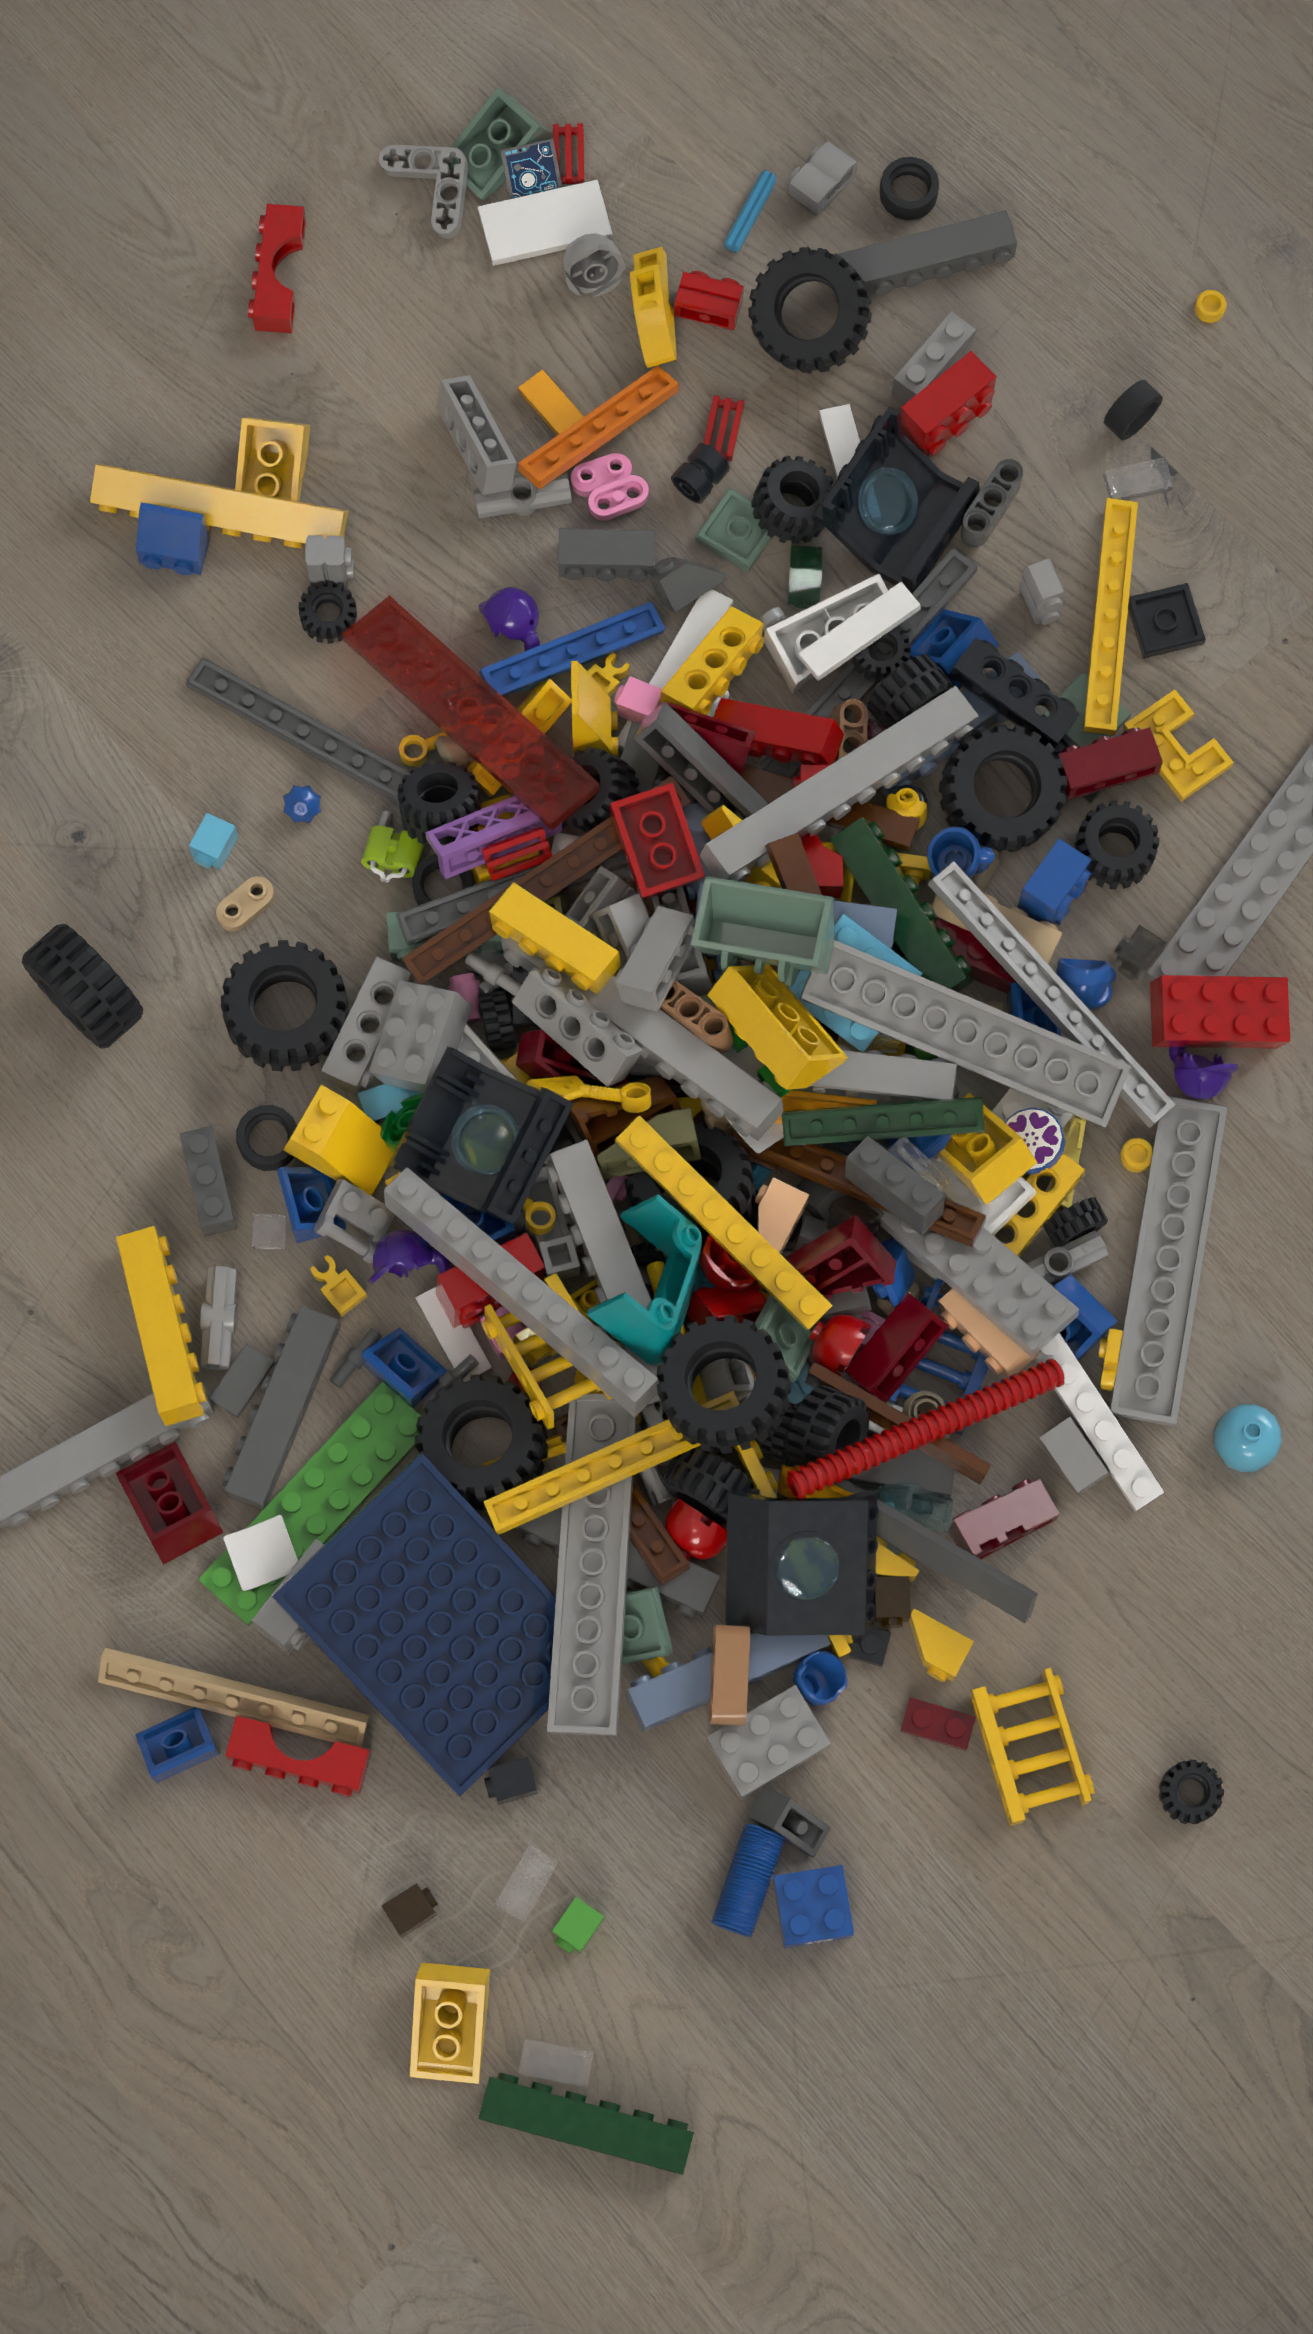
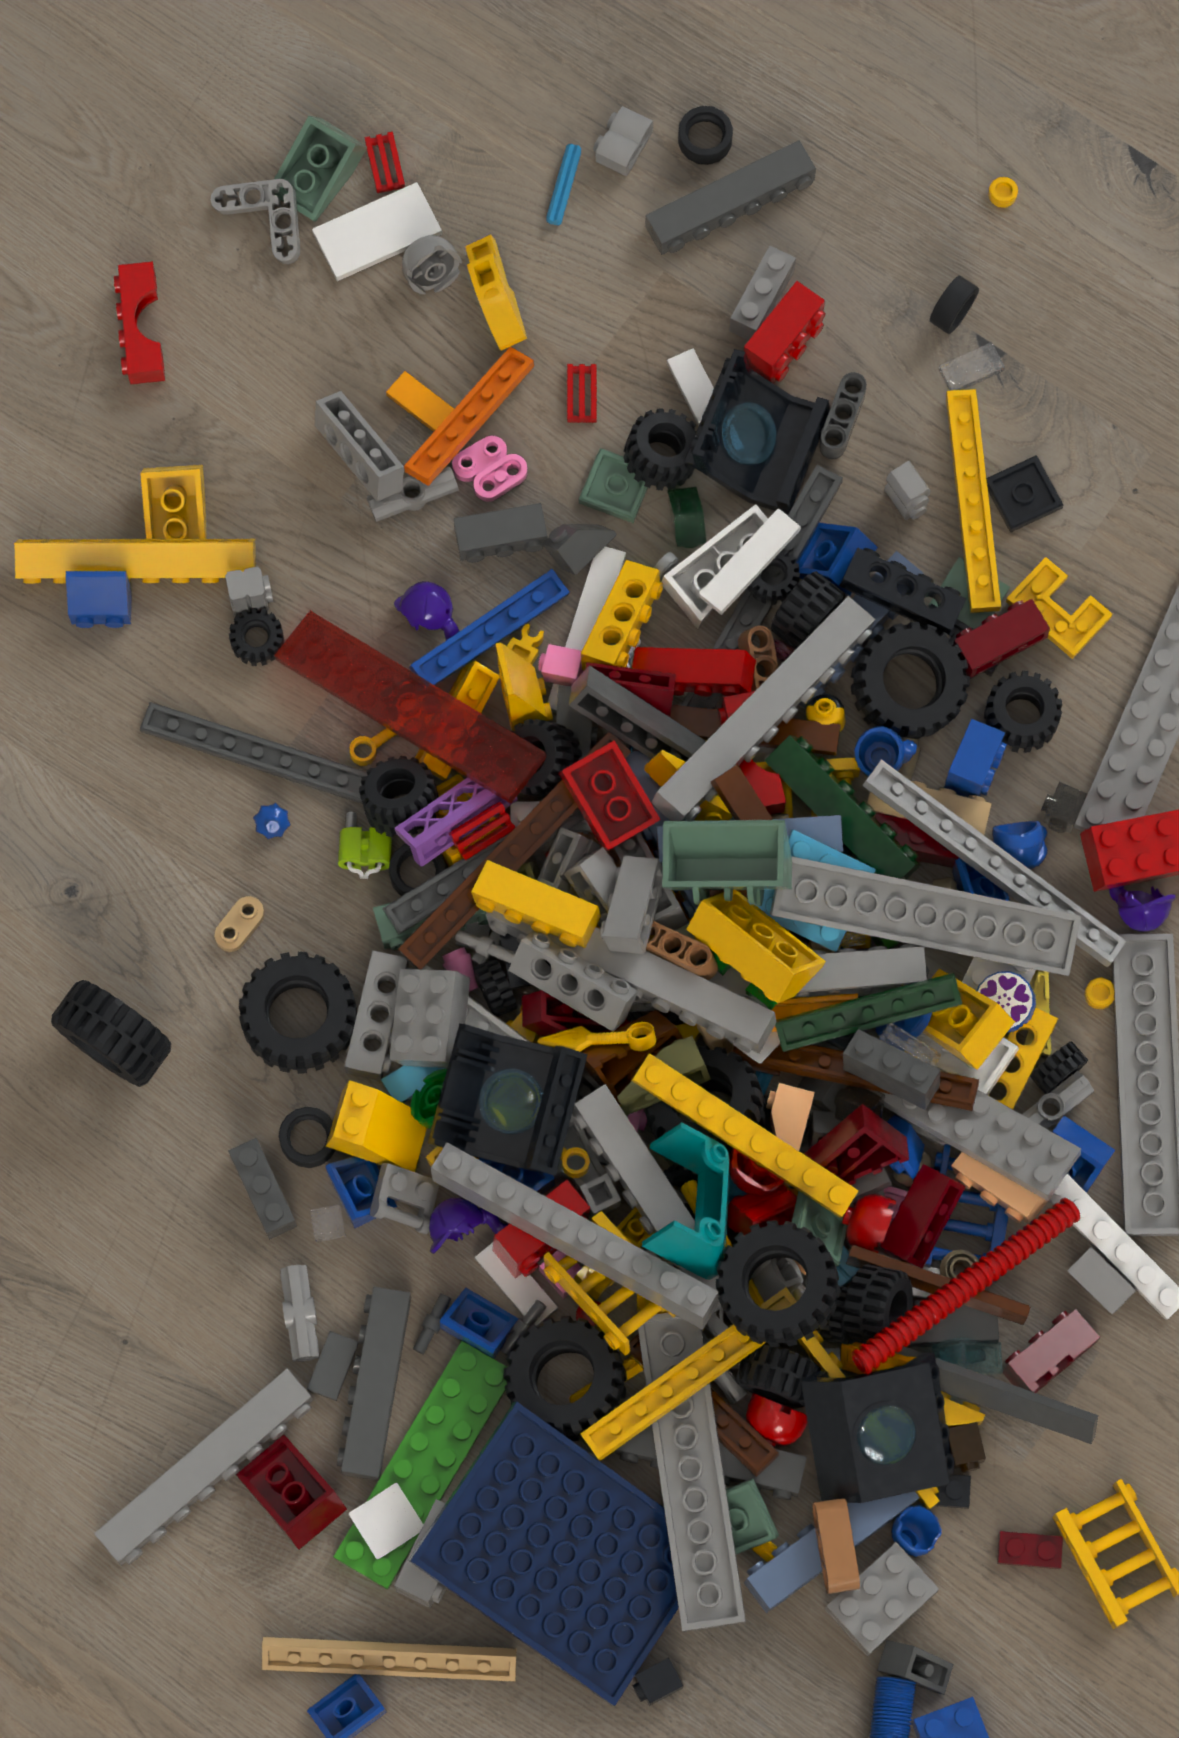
camera: 10 degrees left, 0 degrees up
(160, 1325) = (250, 1332): yellow brick -> none
(213, 842) = (198, 873): medium azure brick -> none
(340, 1290) = (405, 1264): yellow plate -> none
(340, 1767) = (418, 1699): red arch -> none
(450, 751) = (398, 746): dark tan cone -> none
(531, 168) = (354, 184): sticker -> none
(703, 470) = (572, 437): black wheel -> none
(709, 300) = (544, 275): red brick -> none
(777, 284) = (601, 261): black tyre -> none
(939, 1646) = (1016, 1479): yellow slope -> none
(1110, 1351) = (1114, 1177): yellow plate -> none

